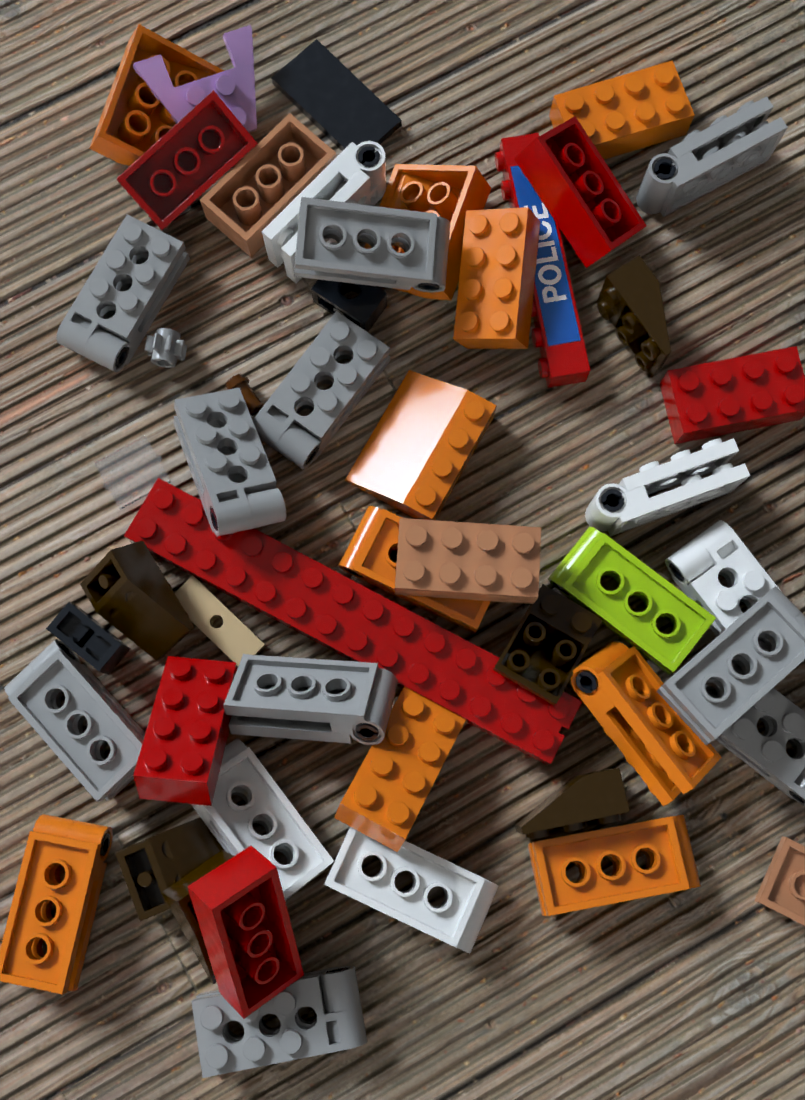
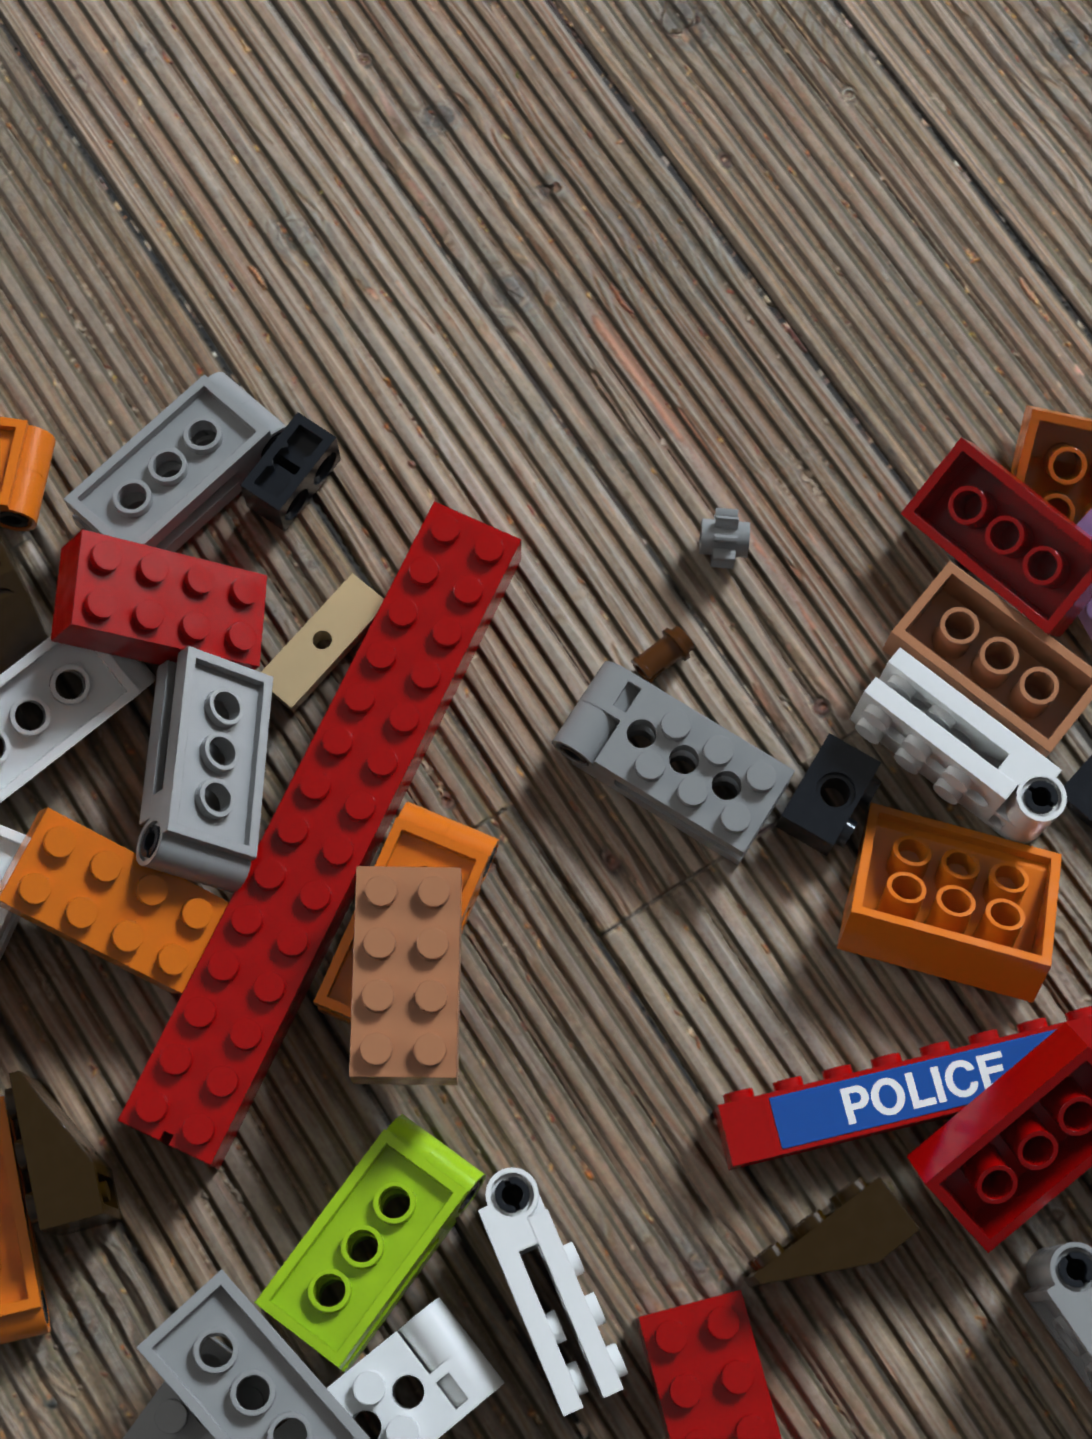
camera: 85 degrees right, 5 degrees down
(131, 472) = (540, 512): clear piece -> none
(135, 260) = (750, 427): light grey hinge -> none
(137, 599) = (346, 528): dark brown slope -> none
(228, 462) = (475, 635): light grey hinge -> none
(418, 233) = (864, 884): light grey hinge -> none
(421, 445) = (600, 917): orange slope -> none
(497, 279) = (870, 1011): orange brick -> none
(548, 645) = (292, 1109): dark brown slope -> none
(653, 738) = (223, 1218): orange hinge -> none

